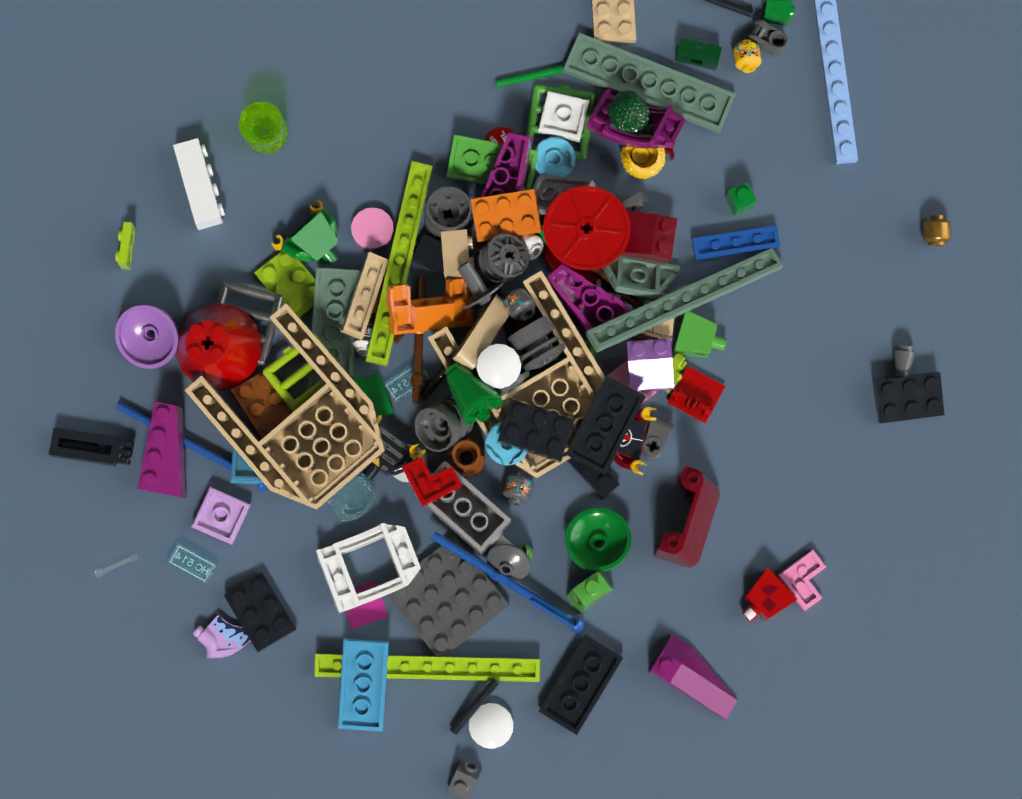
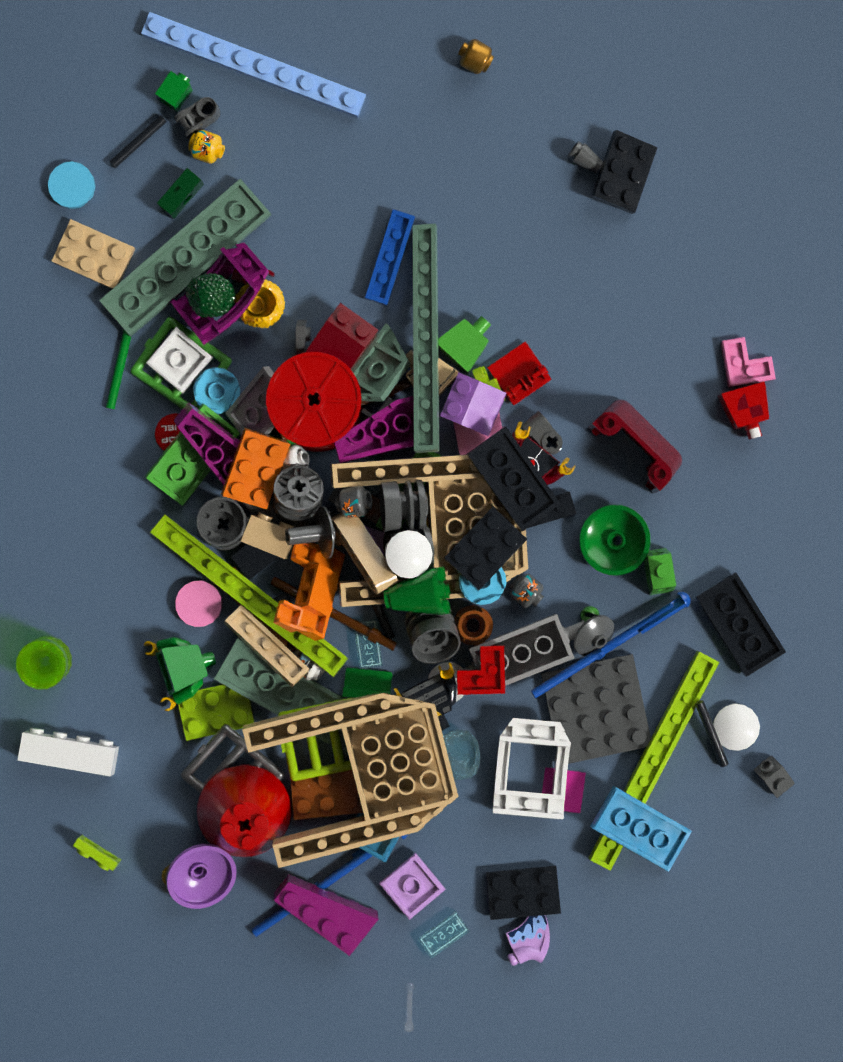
camera: 60 degrees left, 10 degrees up
(84, 446) = (279, 985): black hinge -> none
(689, 674) = (779, 518): magenta wedge -> none
(741, 199) = (349, 229): green brick -> none

